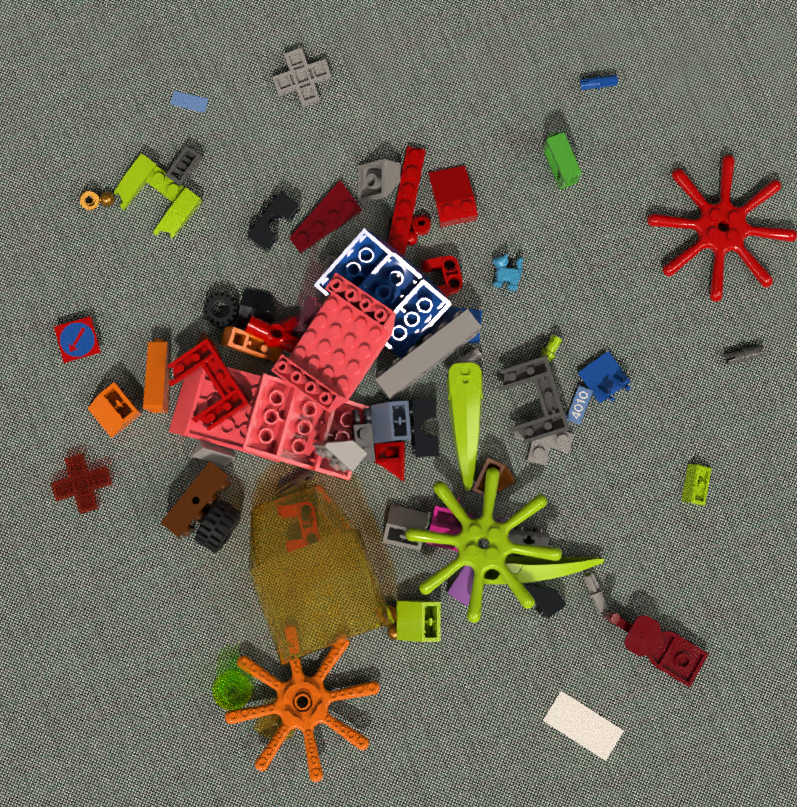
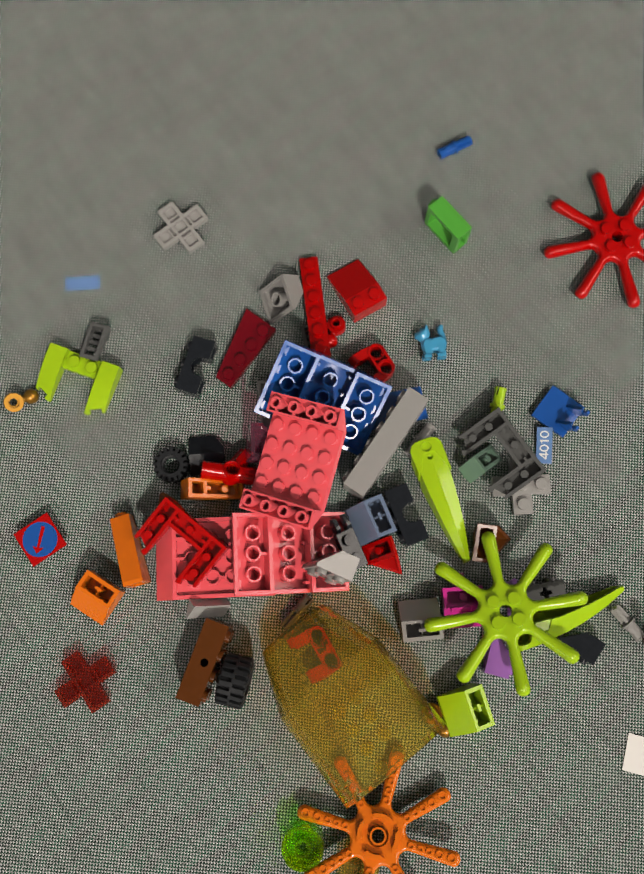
camera: 10 degrees left, 5 degrees down
(512, 403) = (480, 464): none -> sand green slope

